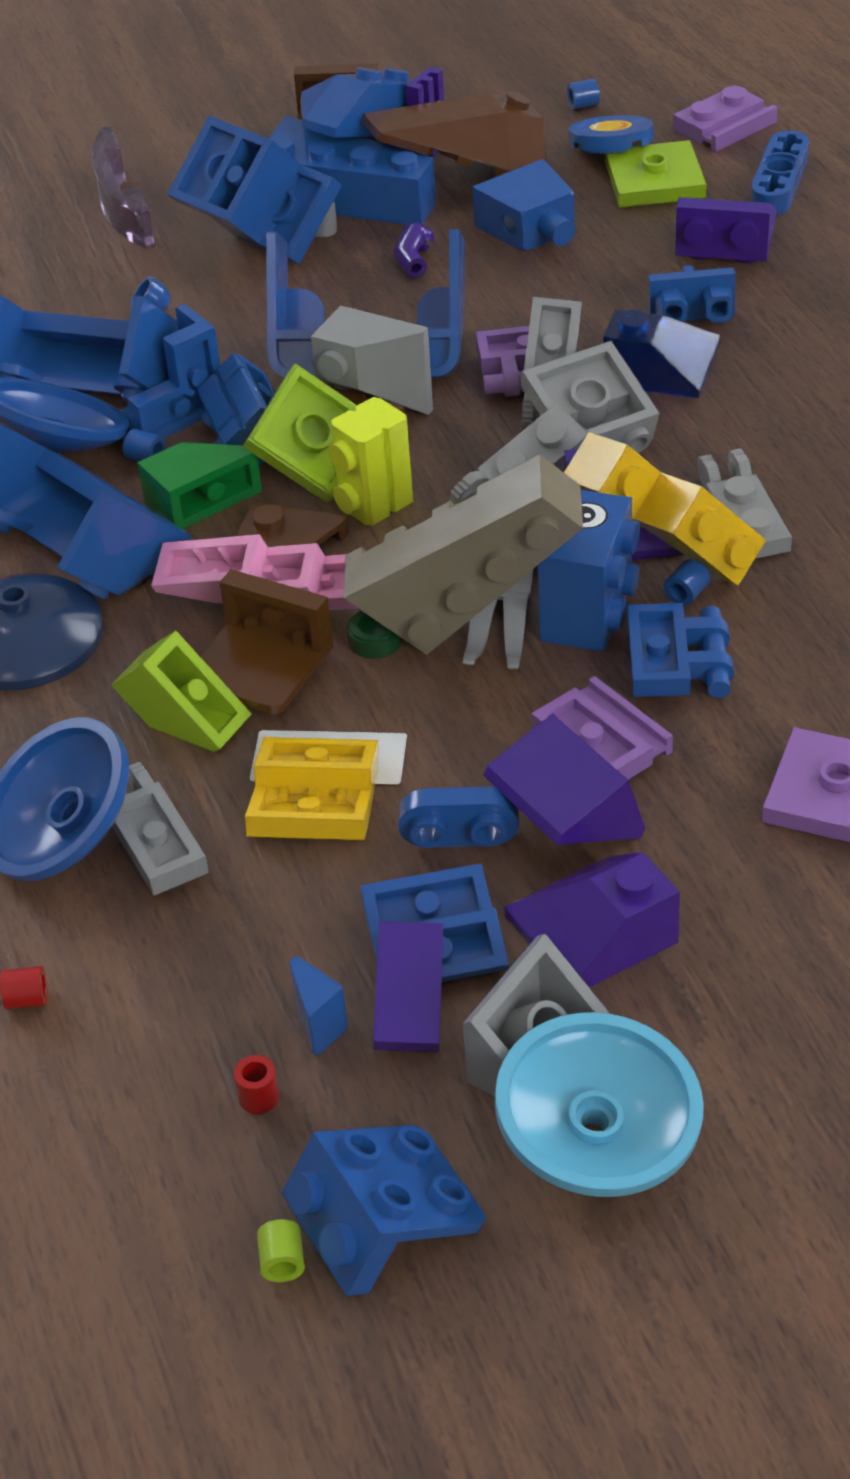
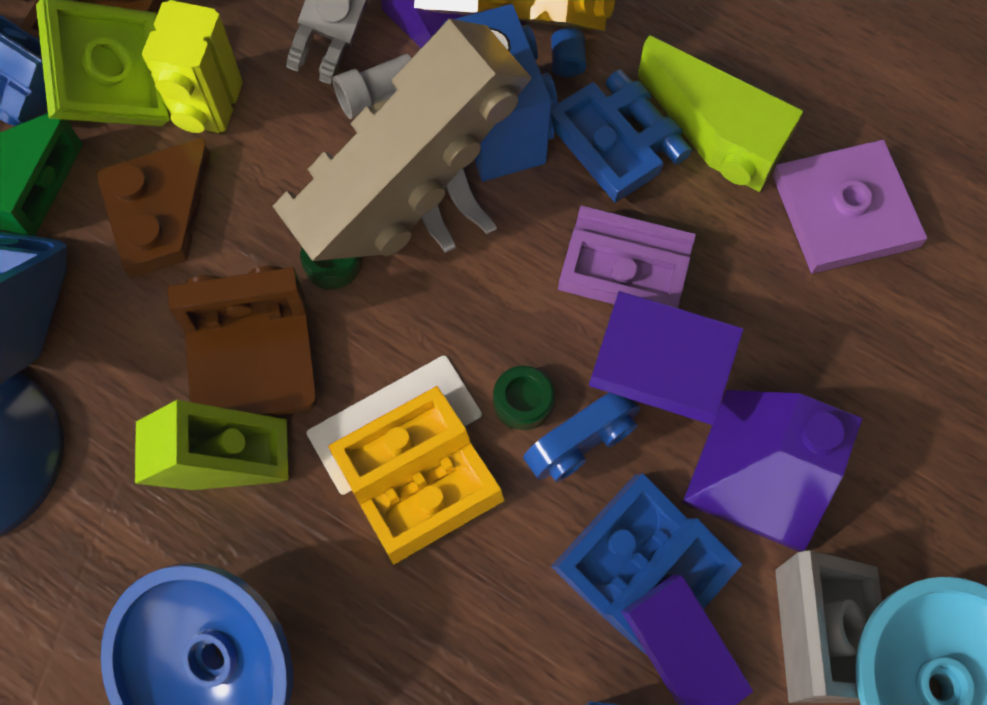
camera: 40 degrees left, 25 degrees up
(157, 835) = (319, 627): light grey hinge -> none
(197, 566) = (138, 272): bright pink slope -> none
(439, 773) = (523, 397): none -> dark green tile
(779, 676) = (722, 117): none -> lime slope

